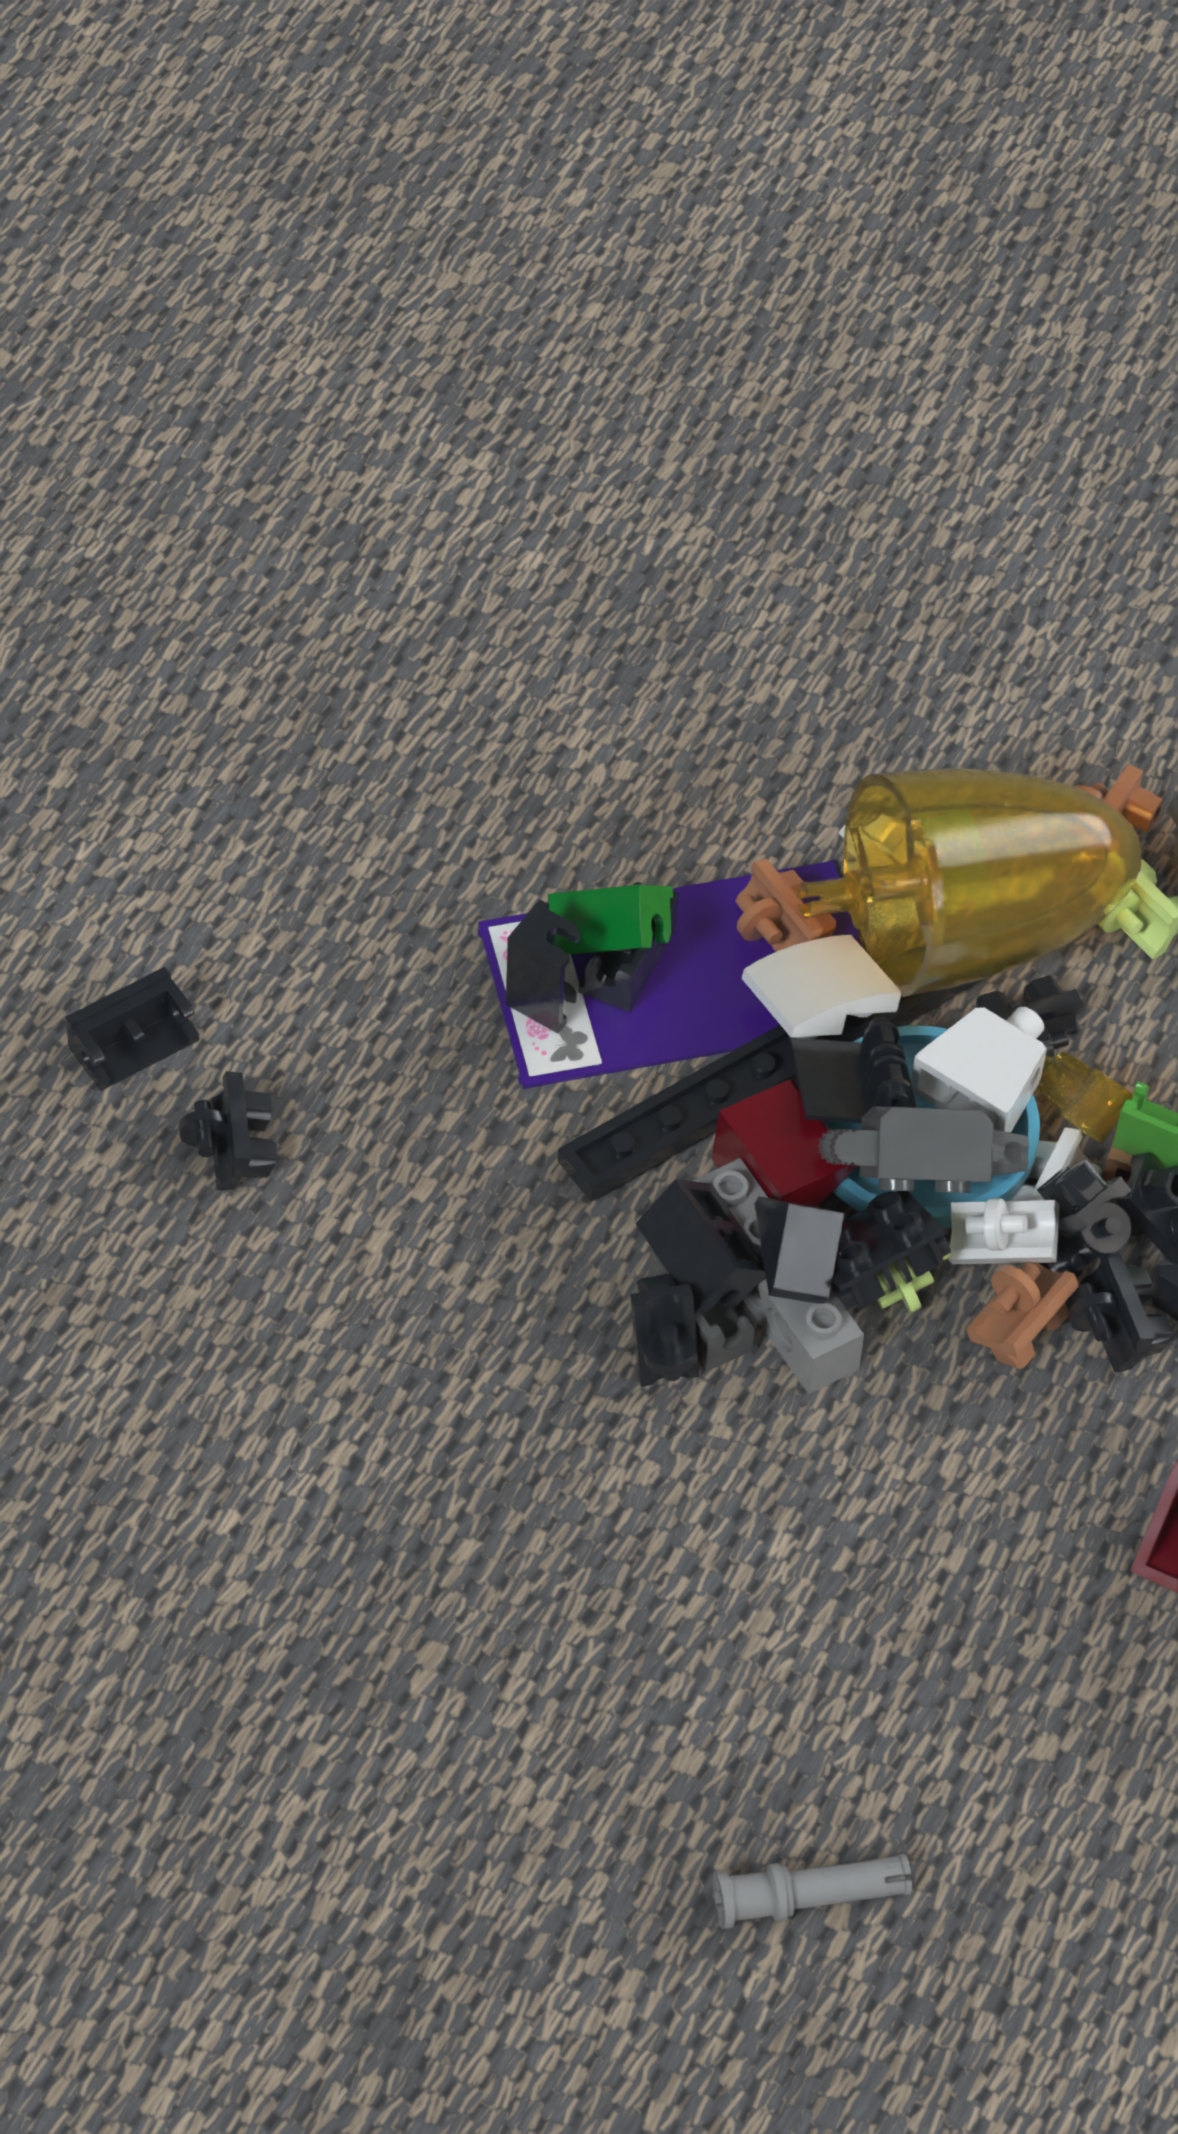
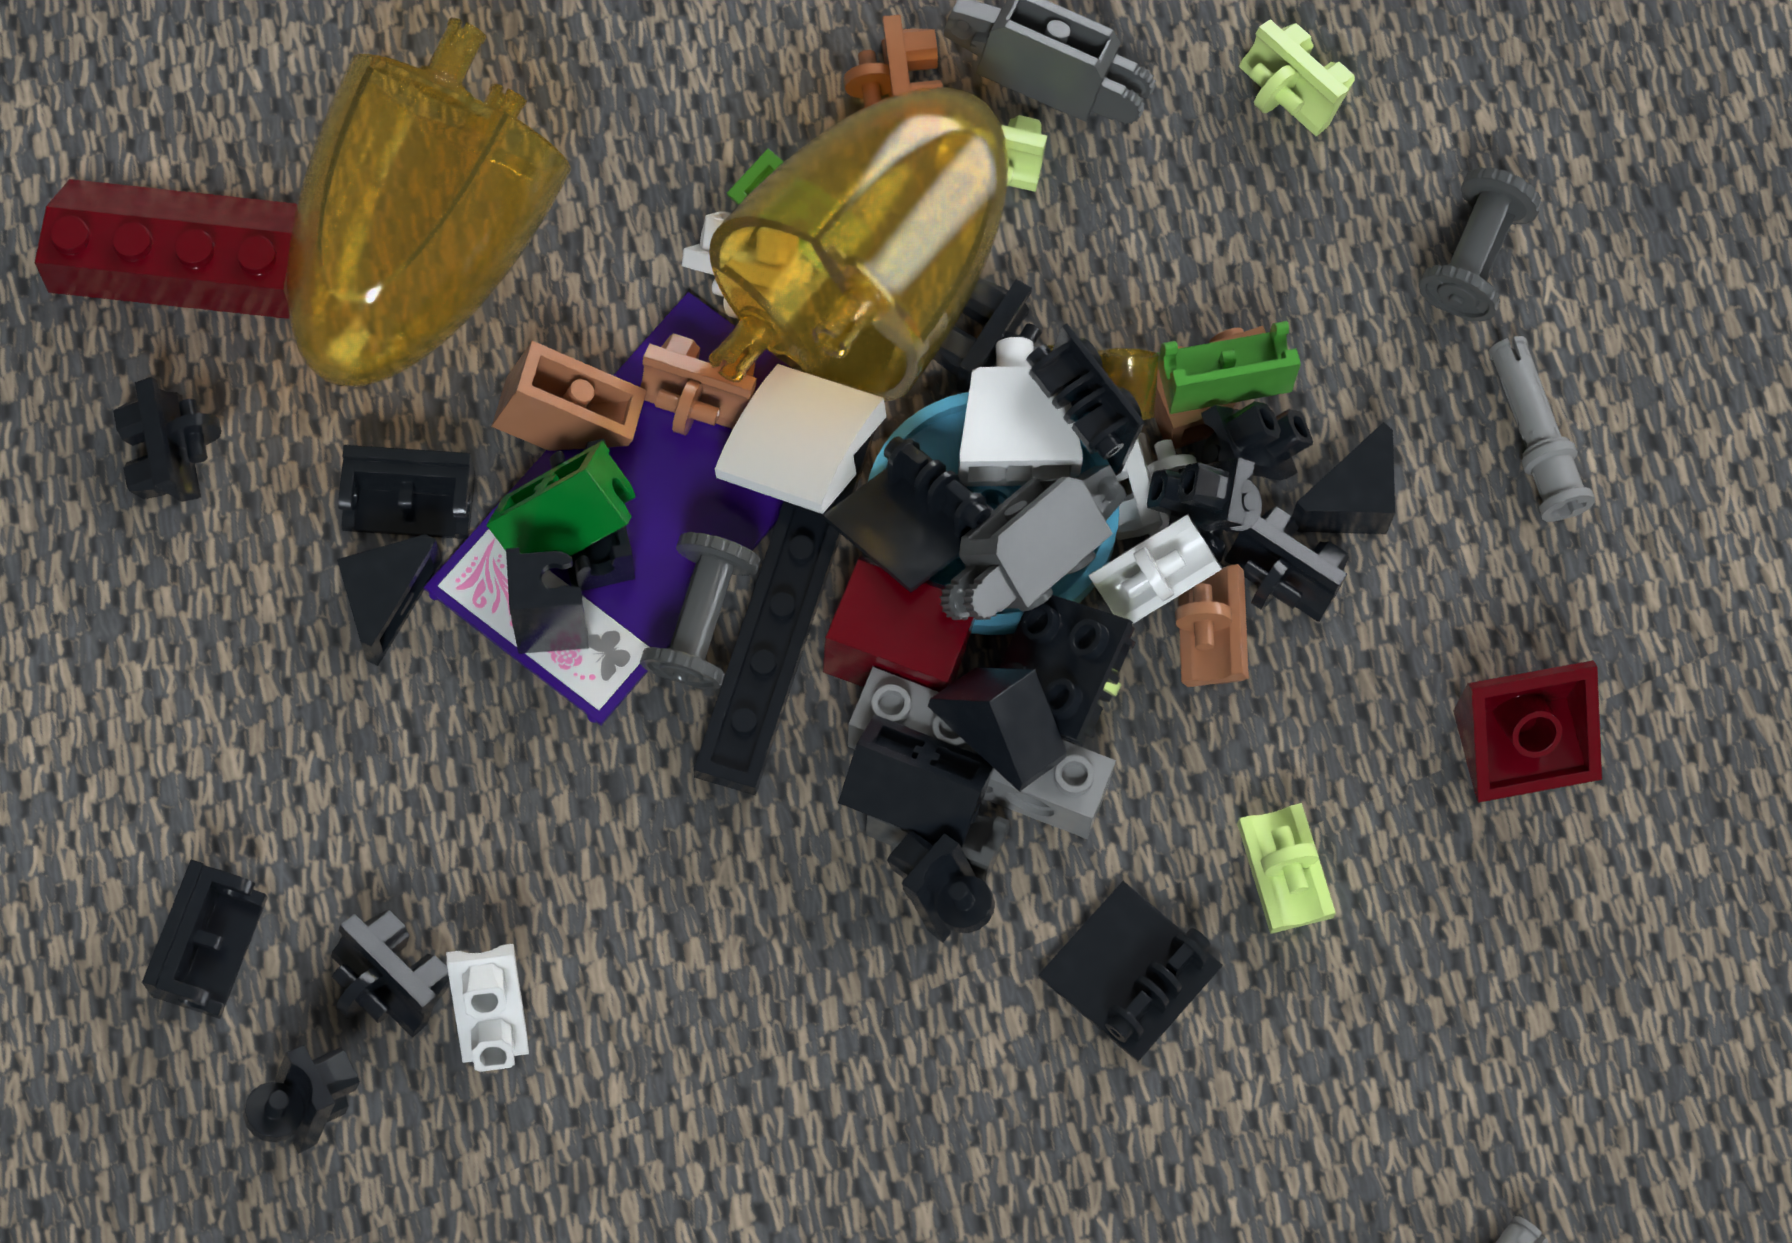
camera: 40 degrees left, 15 degrees up
(110, 1160) = (301, 1098): none -> black hips
(282, 1191) = (488, 1007): none -> white hips
(385, 717) = (173, 438): none -> black hips
(448, 900) = (385, 587): none -> black slope
(494, 608) = (167, 248): none -> dark red slope
(517, 850) = (406, 491): none -> black hinge
(669, 667) = (411, 211): none -> clear yellow windscreen
(675, 852) = (566, 402): none -> nougat slope
(688, 1030) = (715, 564): none -> dark grey hose
(761, 1495) = (1131, 970): none -> black hinge
(932, 1502) = (1286, 868): none -> yellowish green hips
(1041, 1076) = (1103, 414): none -> black hinge

